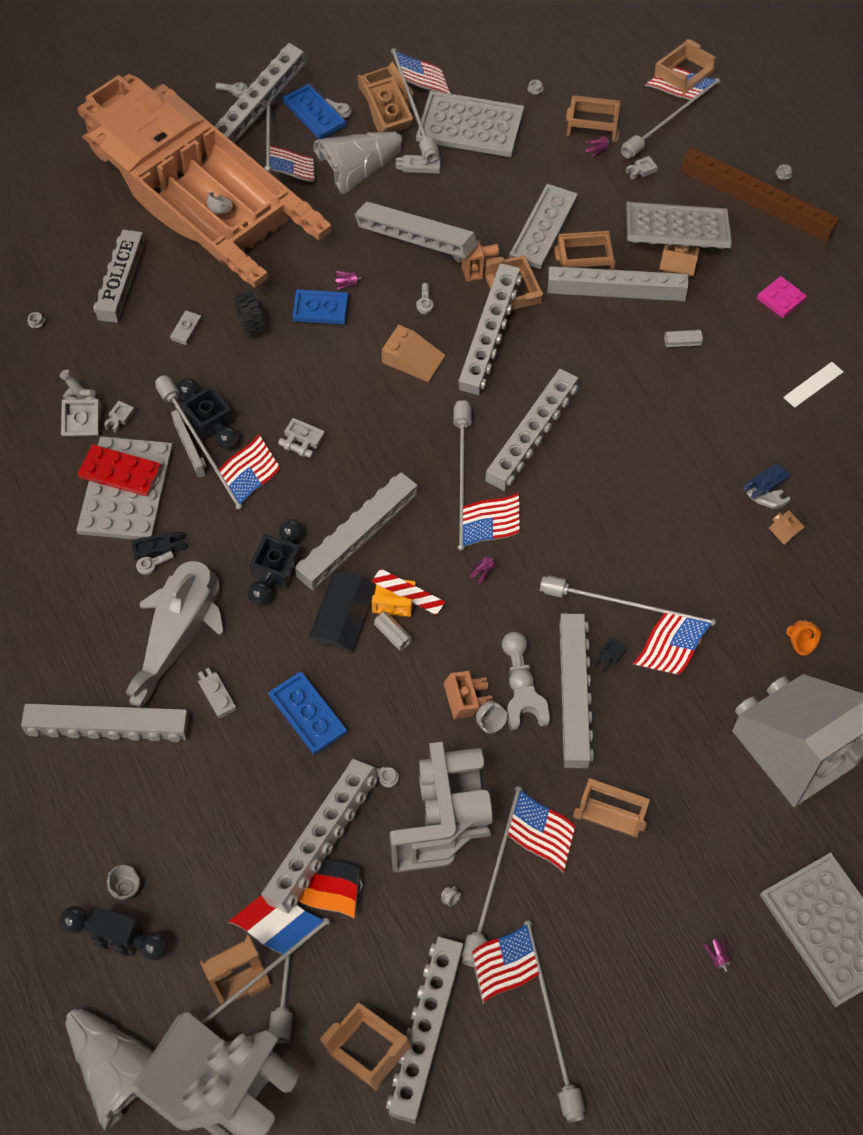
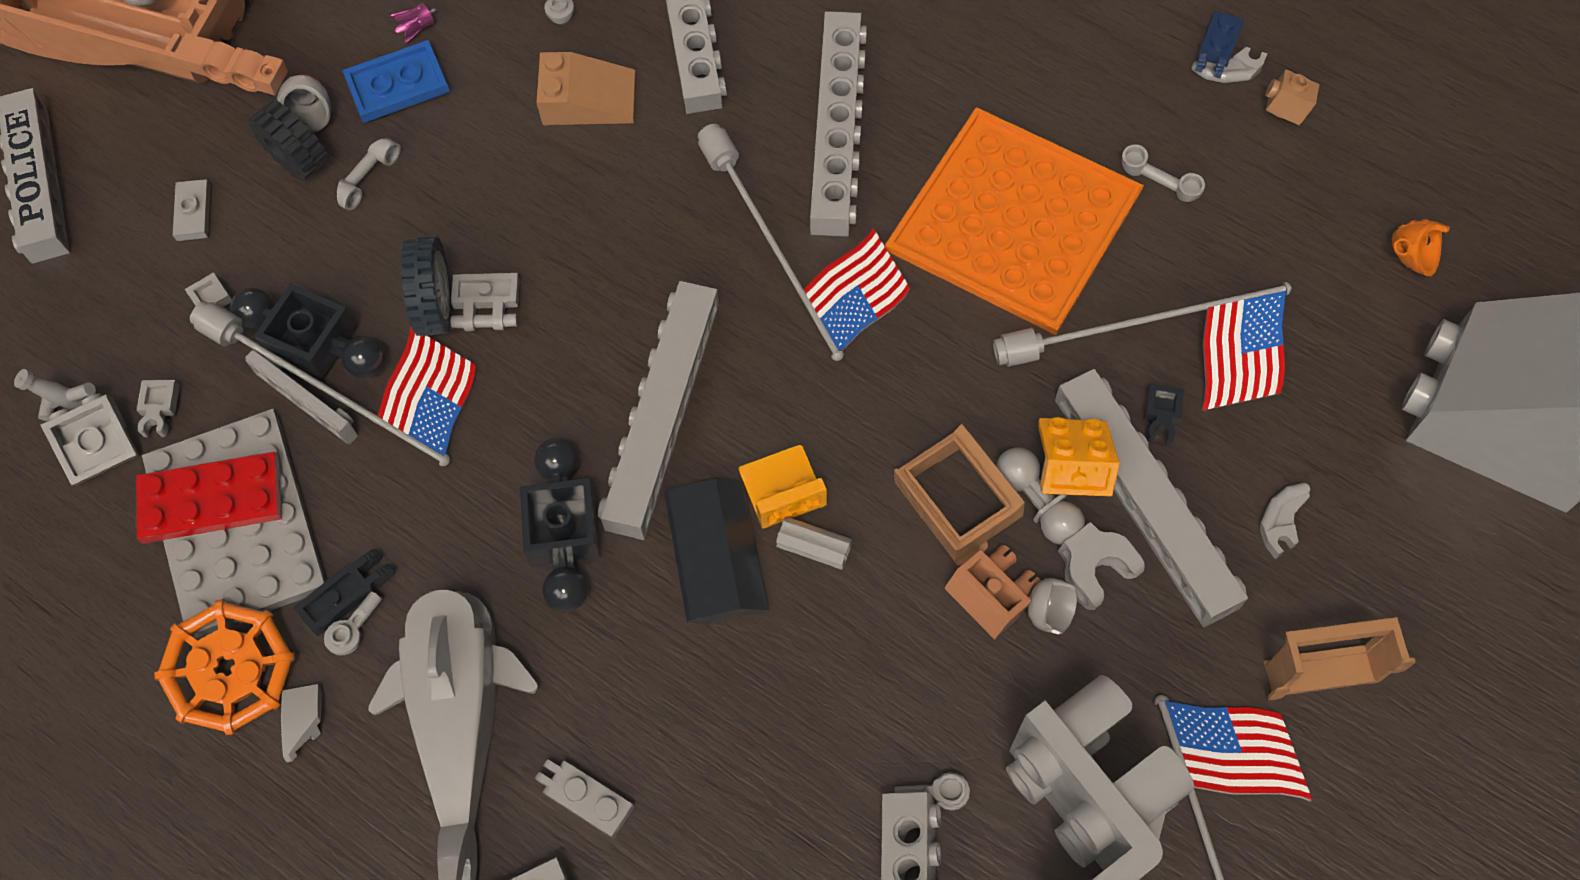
camera: 25 degrees left, 5 degrees up
(80, 543) = (204, 661): none -> orange plate
(107, 592) = (299, 718): none -> light grey slope
(172, 371) = (209, 290): none -> light grey plate
(269, 298) = (306, 99): none -> light grey piece
(275, 416) = (426, 286): none -> black wheel
(294, 340) = (382, 150): none -> light grey bar
(307, 713) = (757, 752): blue plate -> none
(409, 591) = (800, 466): sticker -> none
(479, 665) = (976, 539): none -> medium nougat piece
(485, 564) = (893, 369): flat silver piece -> none
(544, 650) = (1078, 457): none -> light orange bracket
(596, 522) = (1015, 220): none -> orange tile
(638, 733) = (1279, 518): none -> light grey piece
(678, 521) = (1135, 163): none -> light grey bar

